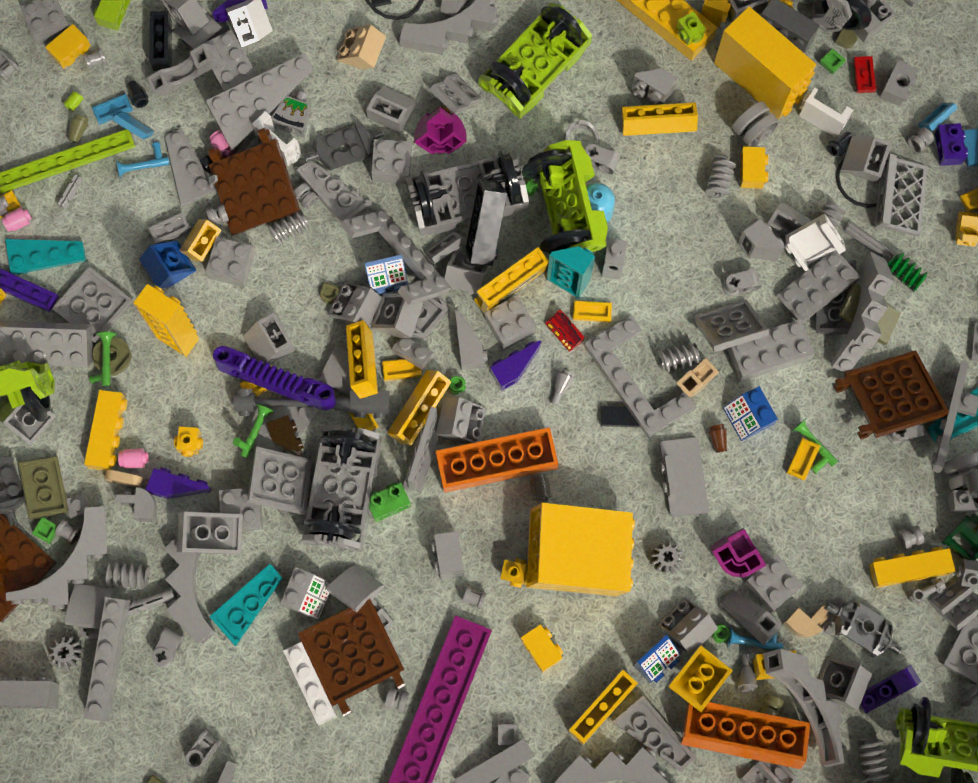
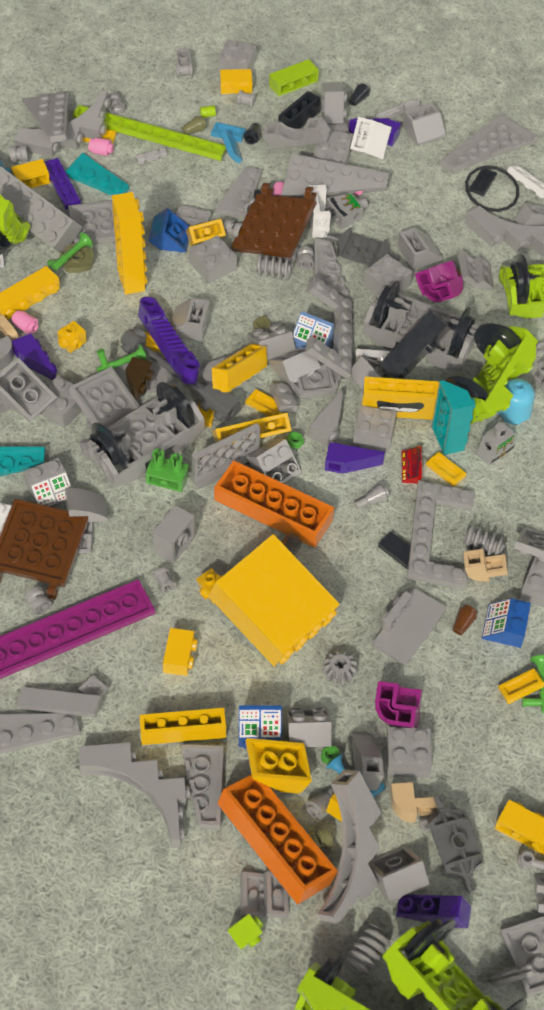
camera: 40 degrees right, 20 degrees down
(157, 162) = (198, 164): dark azure piece -> none
(361, 47) = (435, 202): tan slope -> none
(531, 187) = (475, 361): bright green plate -> none

